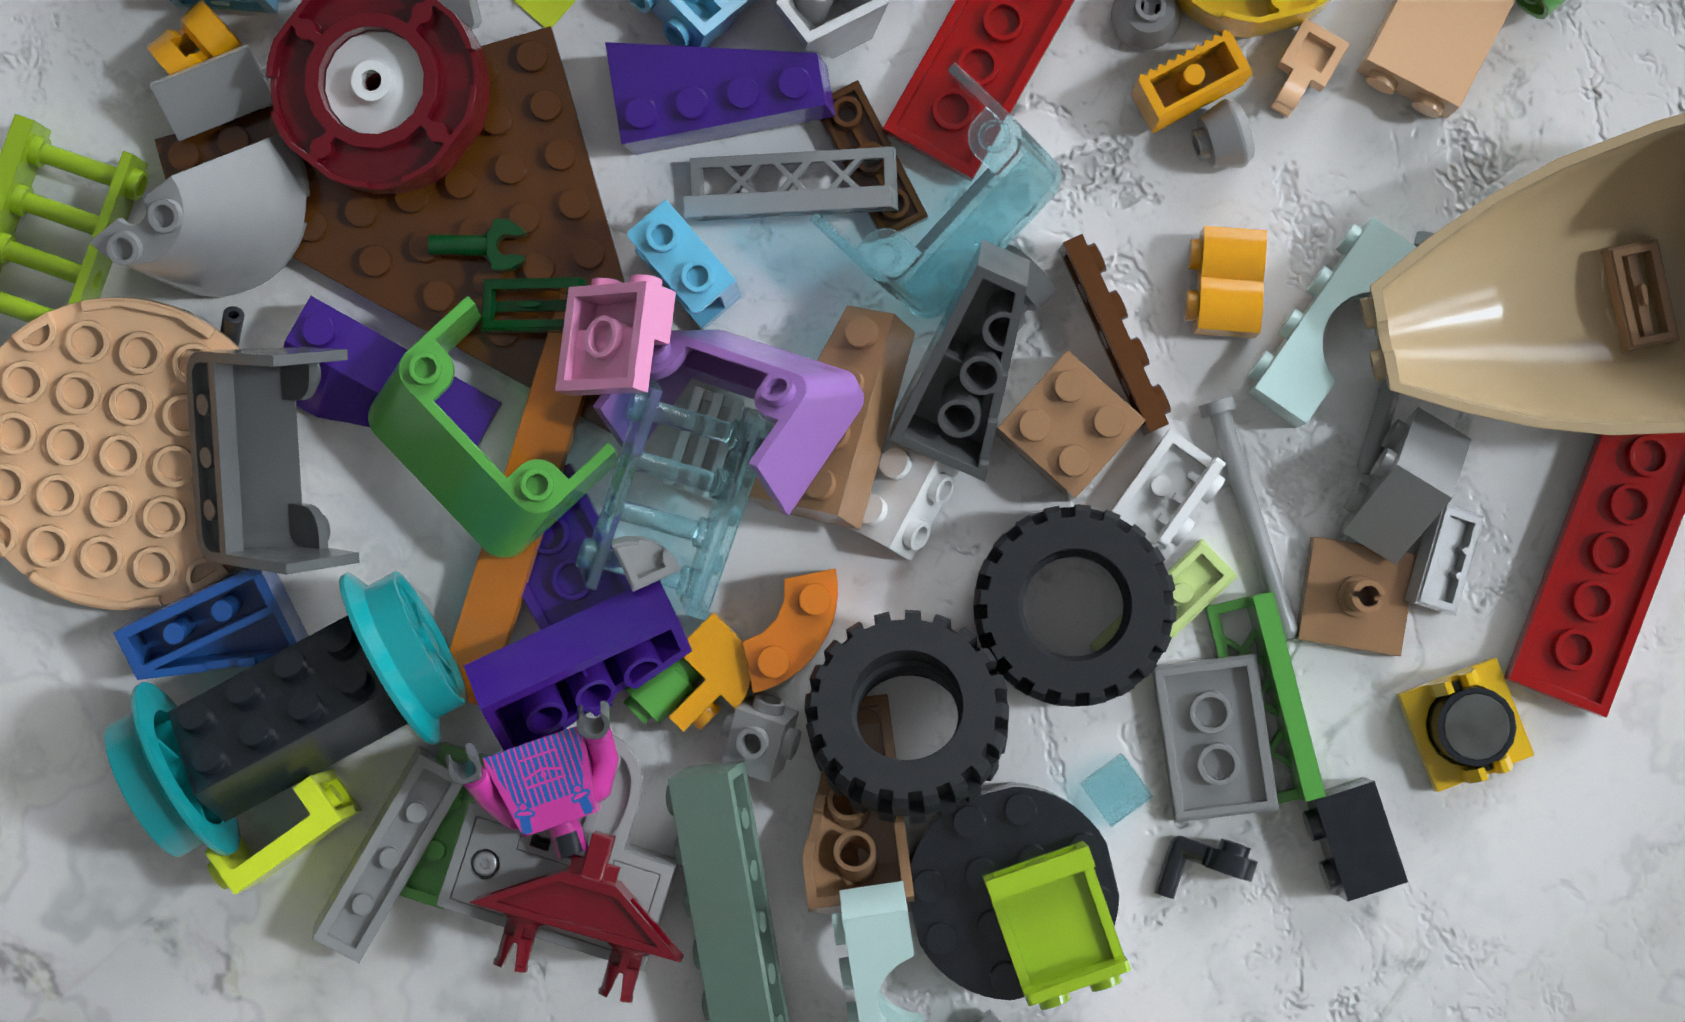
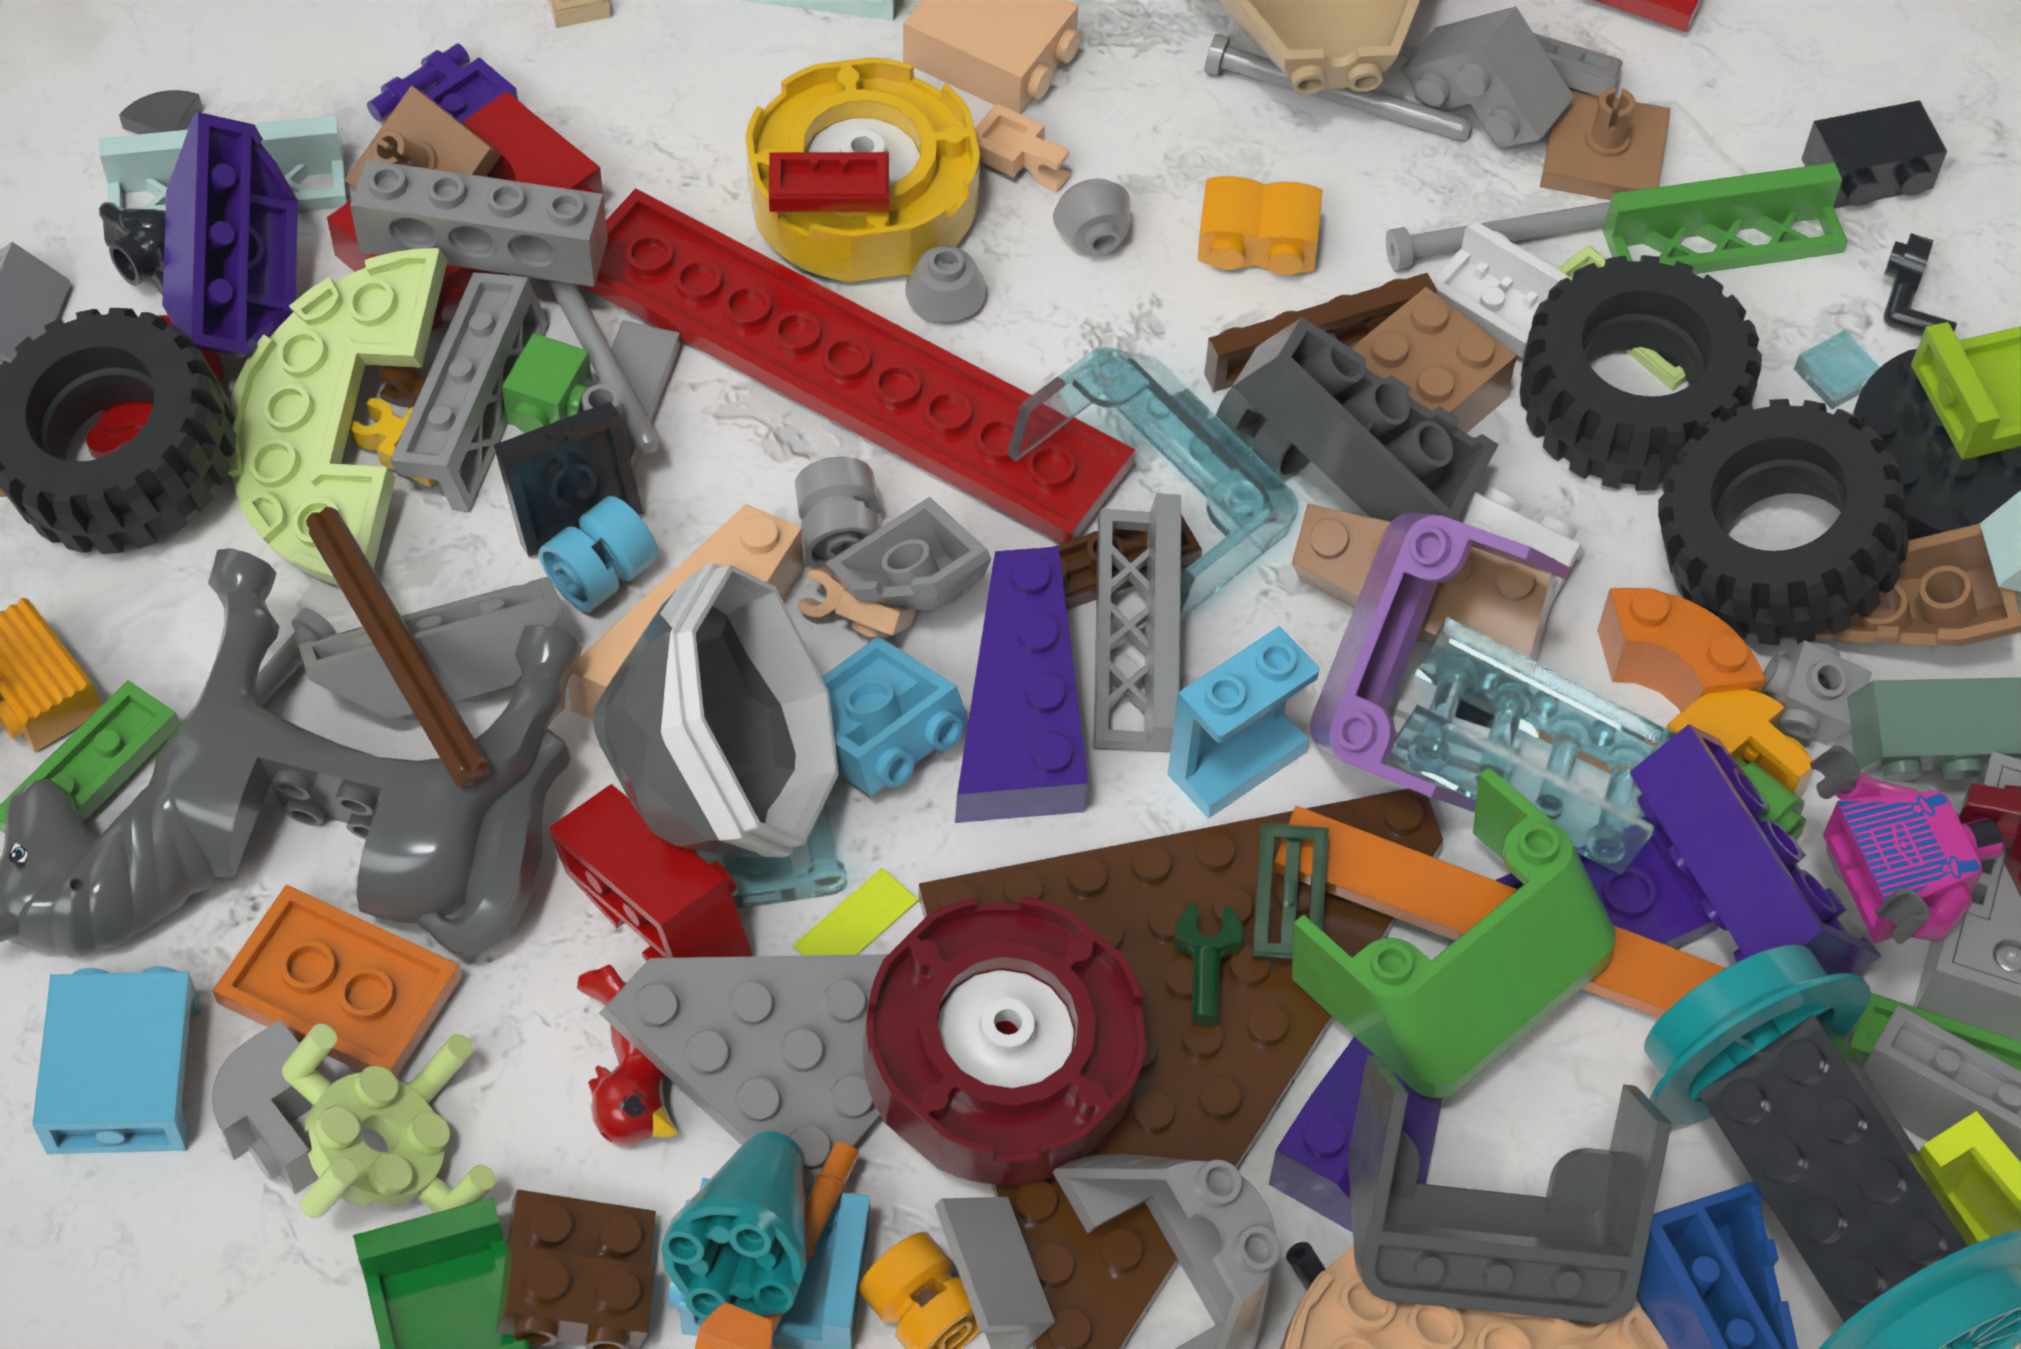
camera: 90 degrees left, 30 degrees down
(613, 335) = (1347, 762): bright pink plate -> none
(644, 560) = (1616, 776): light grey tile -> none
(1190, 81) = (1034, 237): light orange brick -> none
(1215, 738) = (1782, 266): light grey tile -> none
(1296, 374) = (1360, 173): light aqua arch -> none
(1468, 724) = (1739, 57): piece -> none

